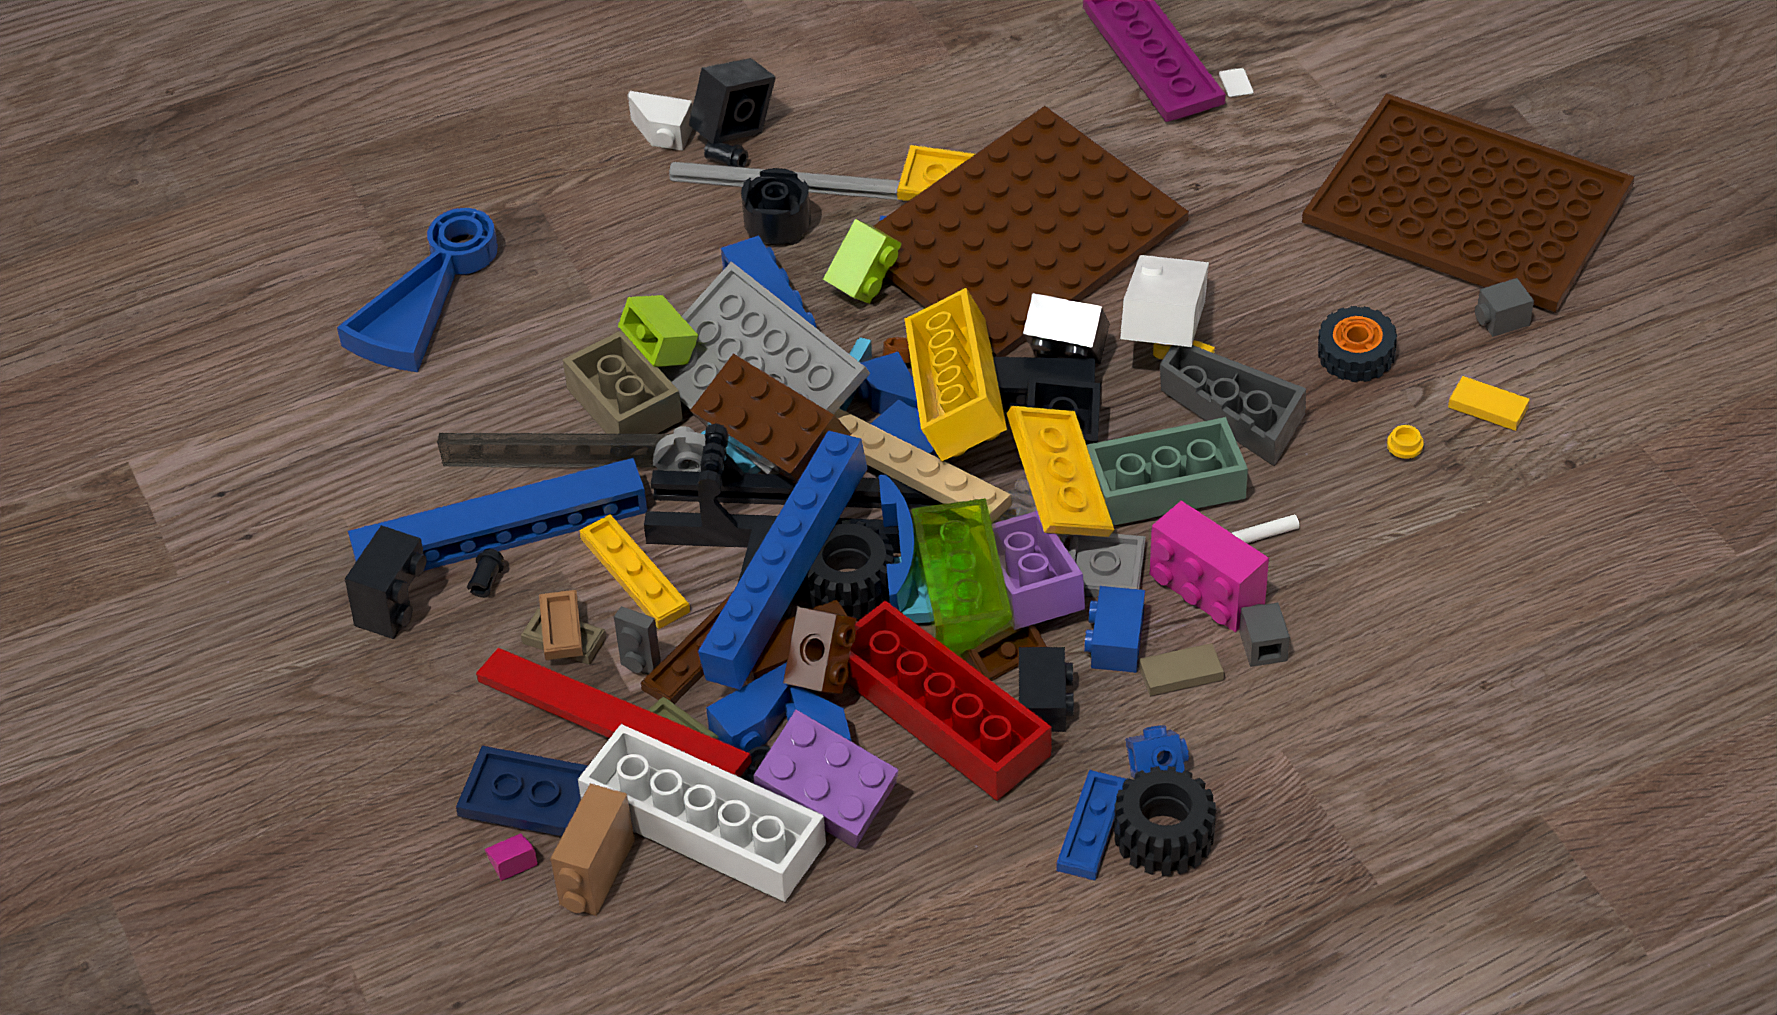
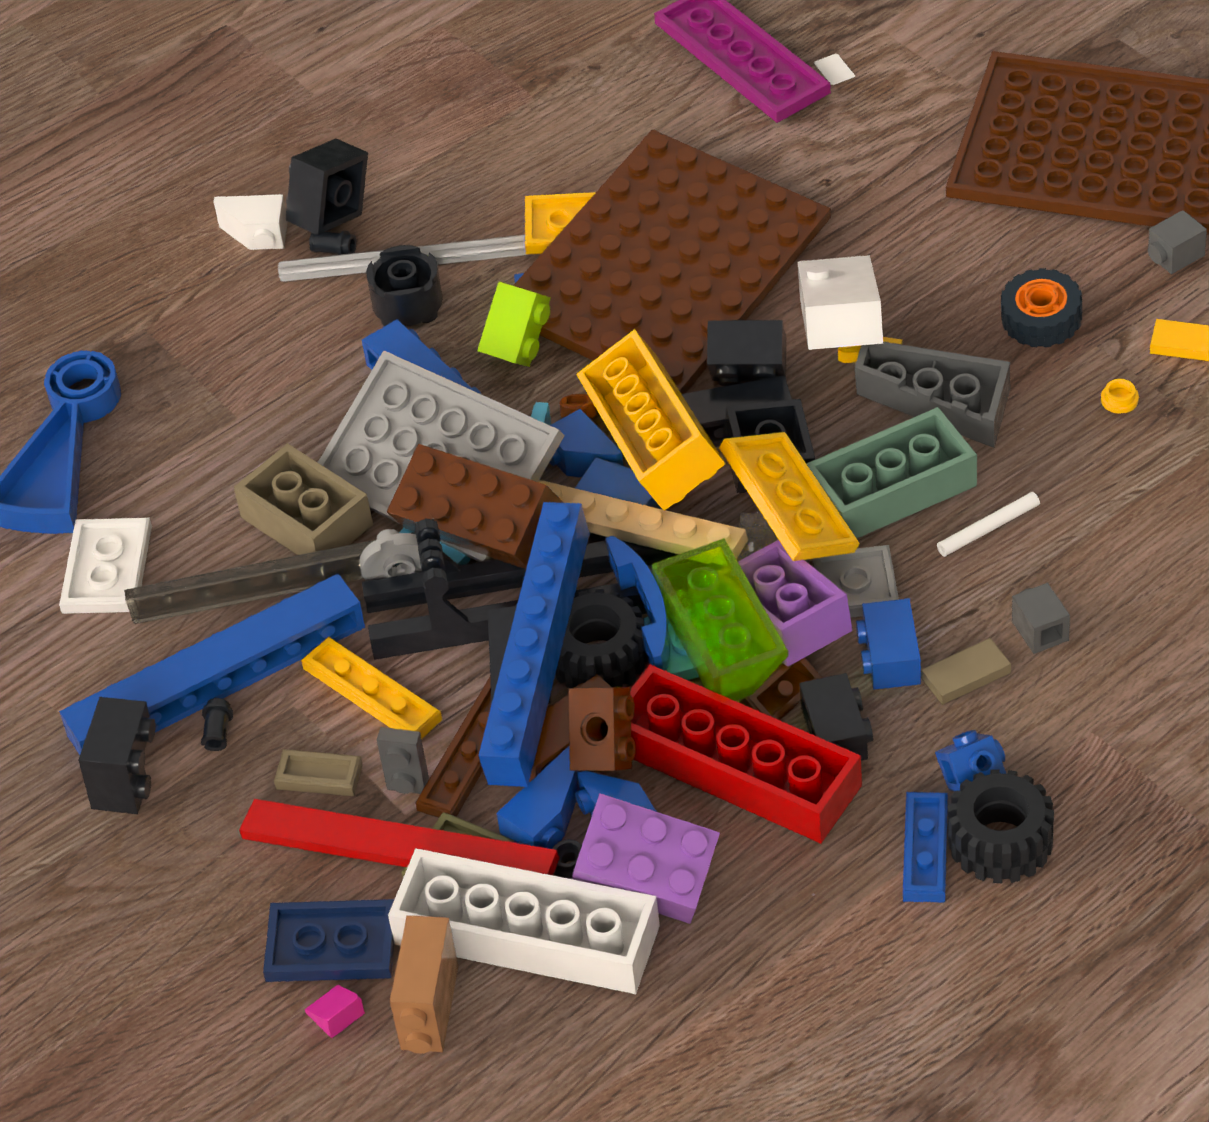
camera: 10 degrees left, 0 degrees up
(433, 403) = (103, 563): none -> white tile
(560, 625) = (314, 761): medium nougat tile -> none
(658, 330) = (326, 437): lime brick -> none
(1207, 565) = (965, 560): dark pink brick -> none

